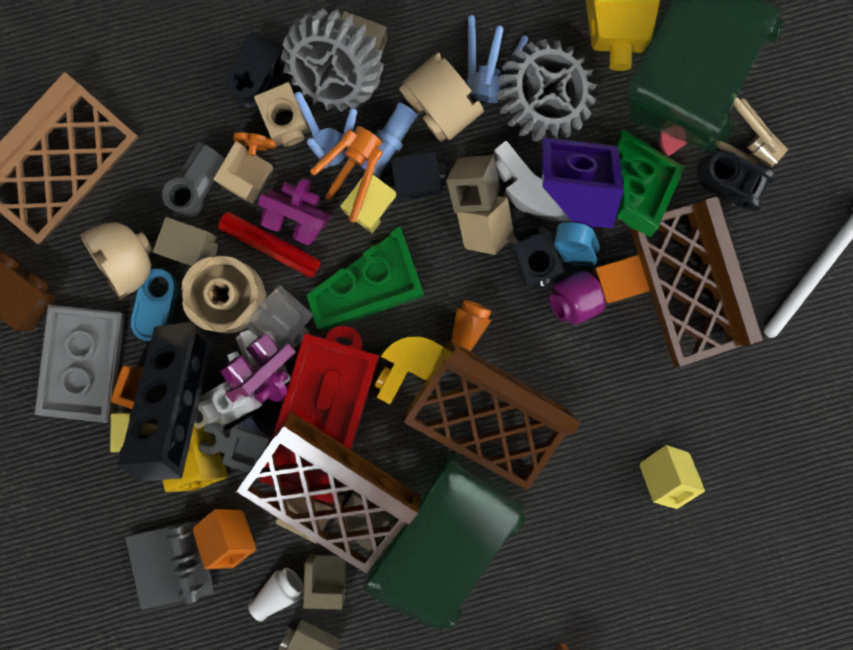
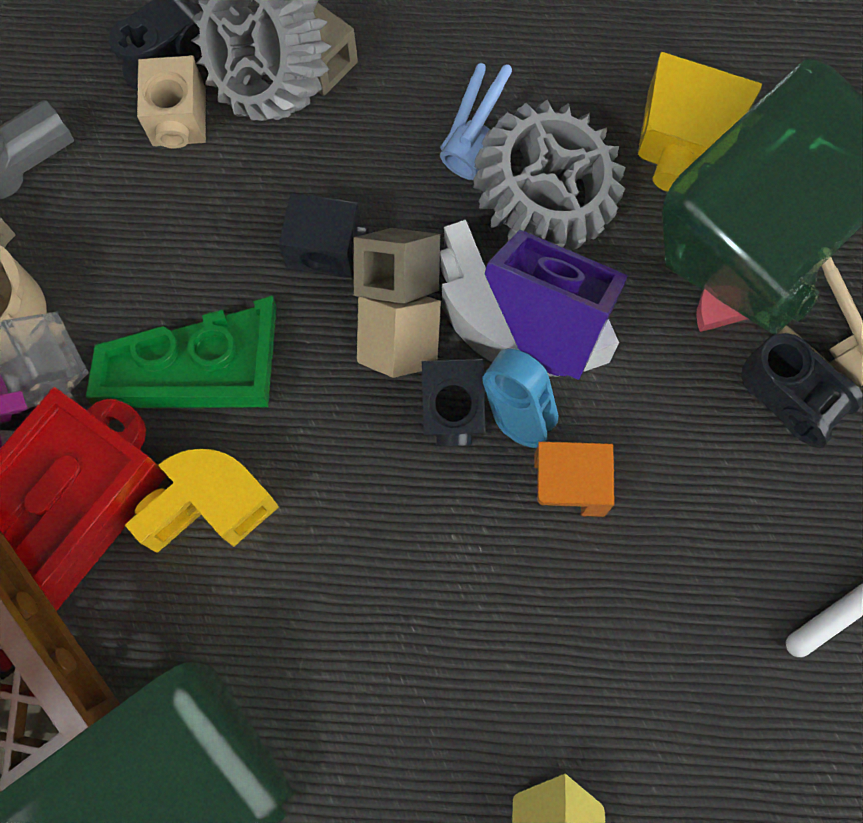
camera: 25 degrees right, 15 degrees down
(243, 173) = (84, 157): tan panel -> none
(255, 142) = (117, 121): orange plant -> none
(269, 244) = (80, 265): red axle -> none
(279, 206) = (113, 216): magenta hips -> none
(327, 138) = (217, 157): light blue plant -> none
(361, 147) = (255, 169): orange plant -> none
(375, 203) = (235, 244): light yellow panel -> none
(393, 135) = (304, 177): light blue pin -> none
(442, 96) = (393, 138): tan brick -> none
(470, 323) = (315, 473): orange cone -> none
(502, 386) = (334, 585): reddish brown fence -> none
(577, 298) = (497, 483): magenta head -> none
(647, 183) = (651, 343): green wing -> none
(719, 274) = (738, 529): reddish brown fence -> none

